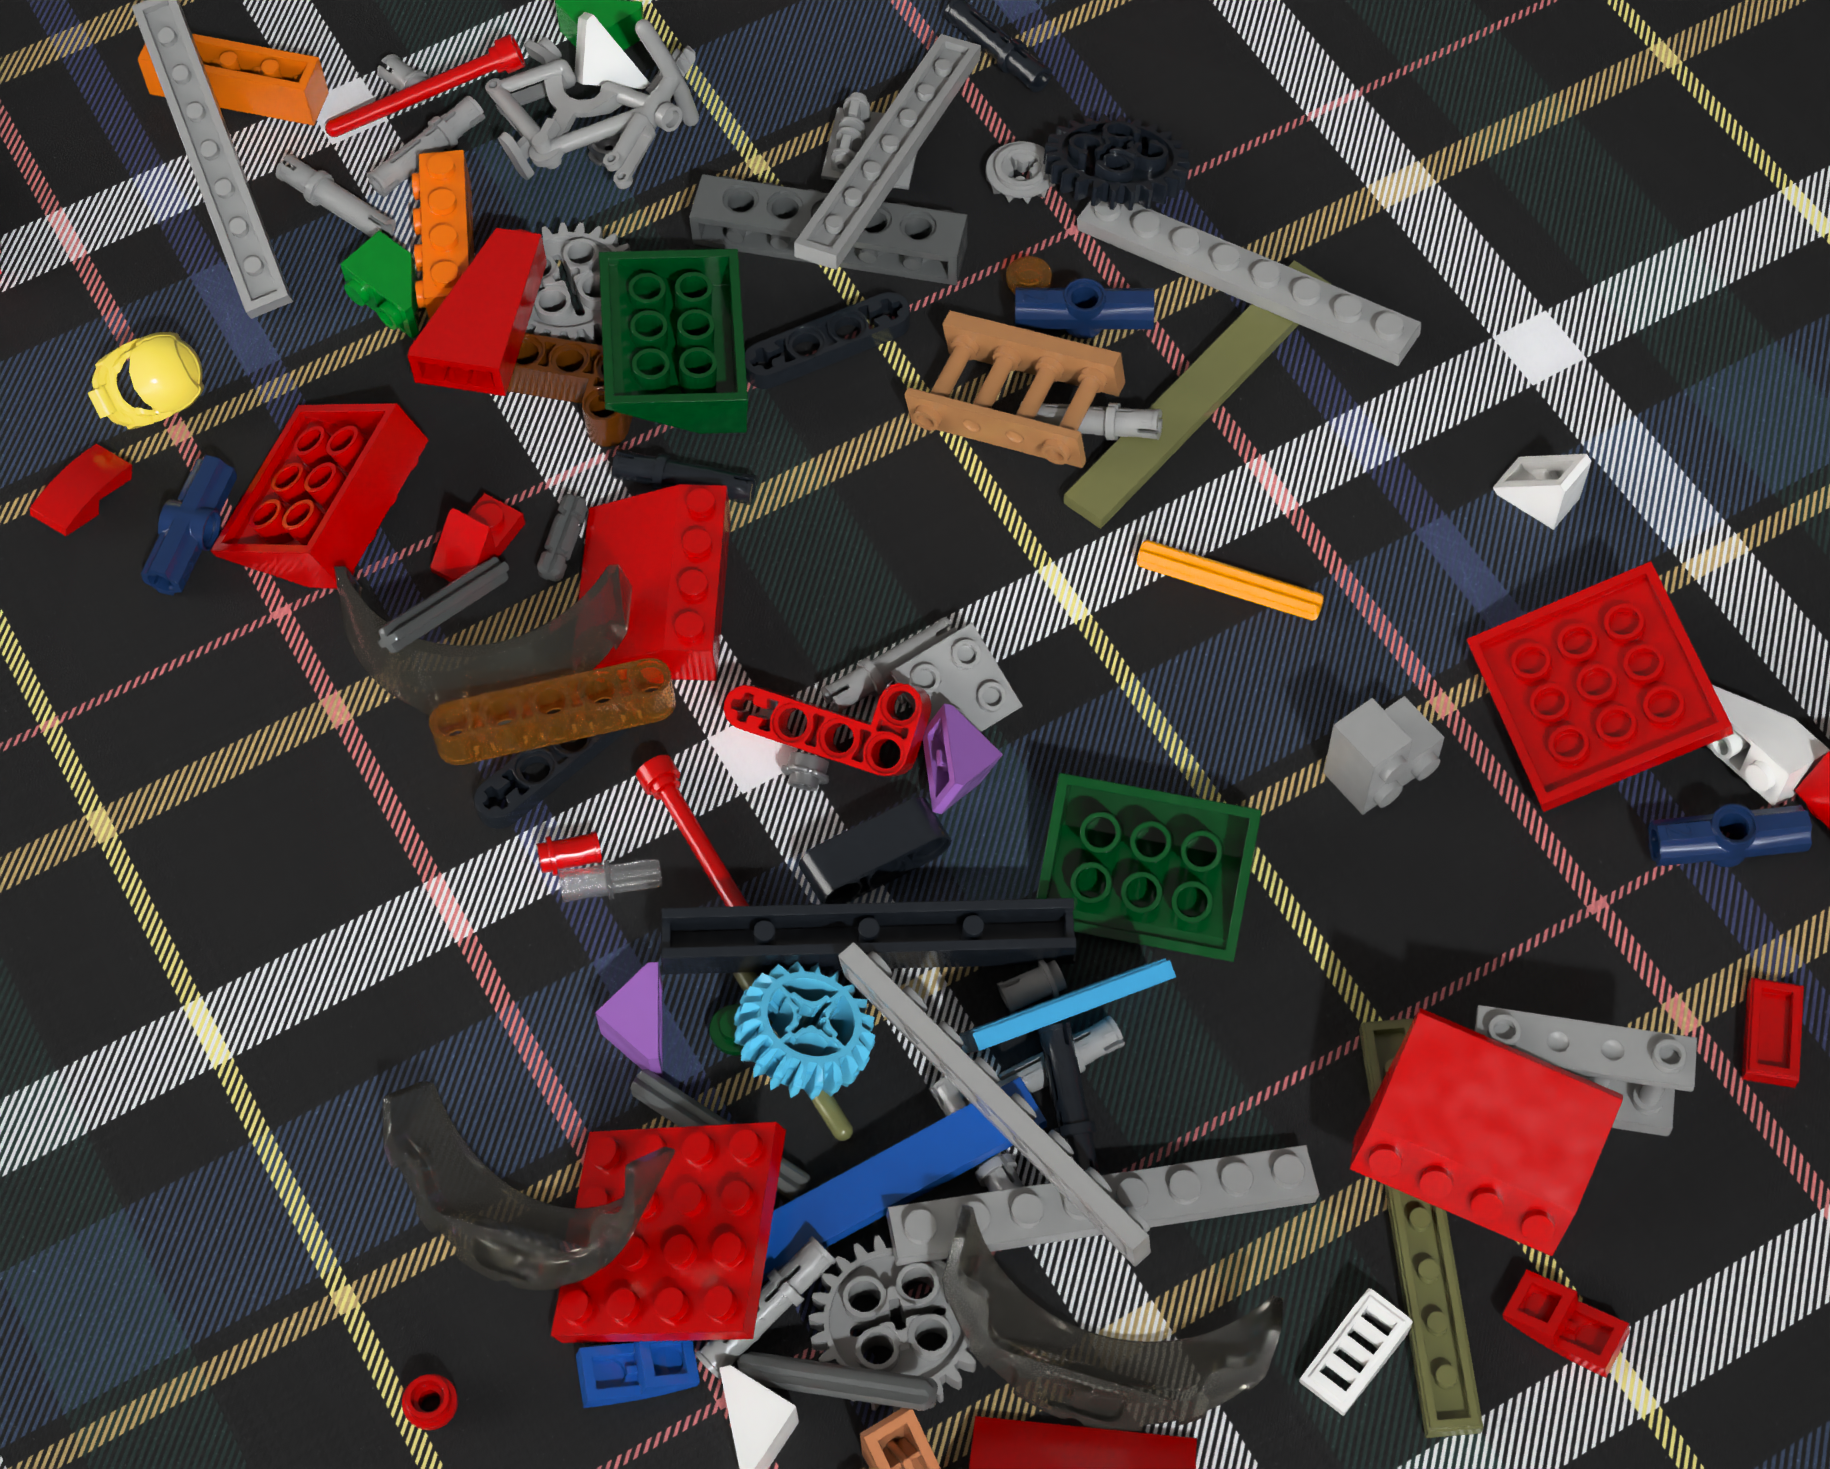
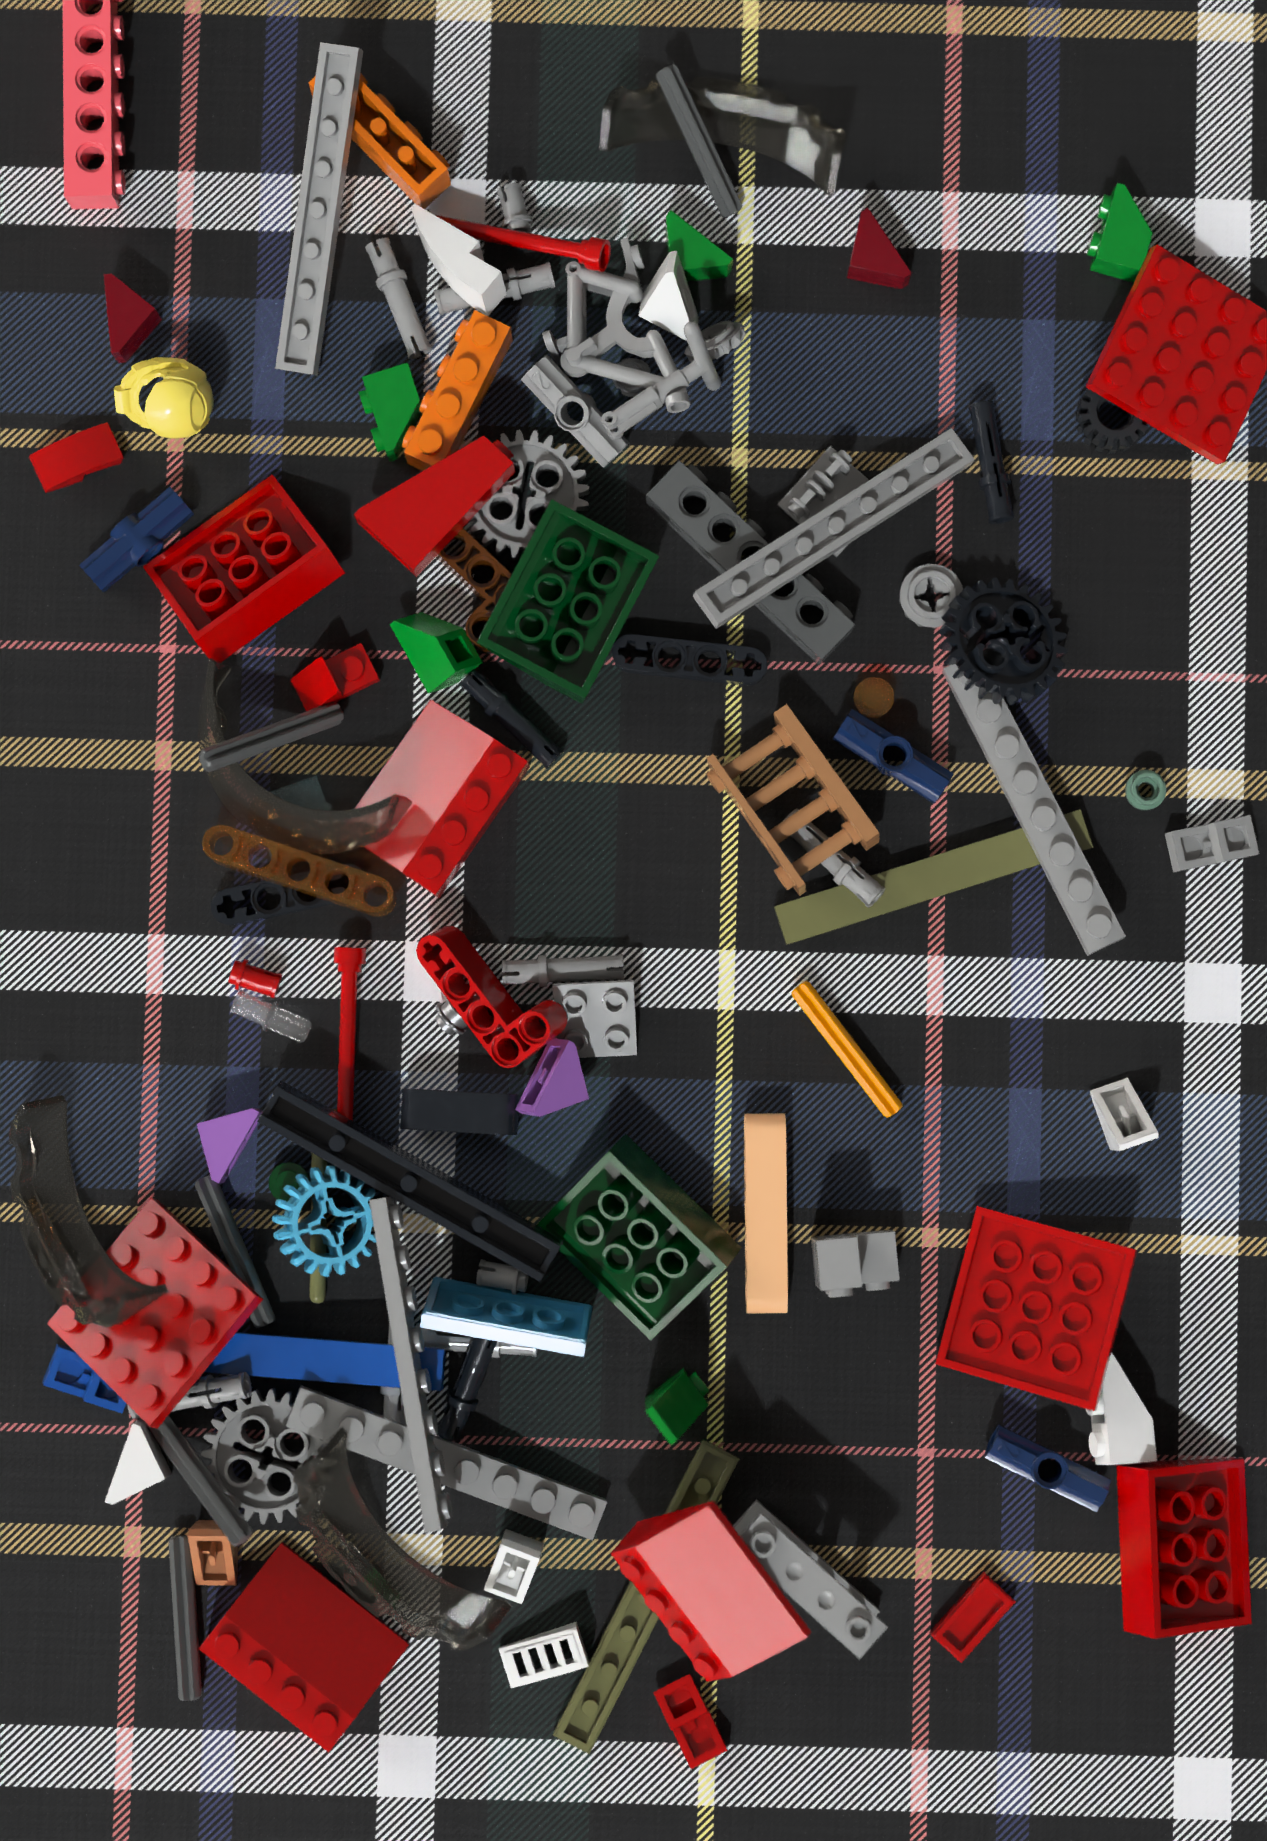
camera: 30 degrees right, 25 degrees up
(67, 342) = (129, 318): none -> dark red slope
(375, 129) = (460, 261): none -> white slope
(545, 184) = (555, 392): none -> light grey piece
(562, 537) = (396, 714): dark grey axle -> none
(570, 452) = (436, 650): none -> green slope
(1252, 1264) = (514, 1566): none -> white slope
(1263, 768) = (765, 1213): none -> light nougat beam
(1304, 994) = (677, 1404): none -> green slope
(1342, 206) = (1157, 786): none -> sand green plate
(1439, 227) = (1211, 843): none -> light grey slope

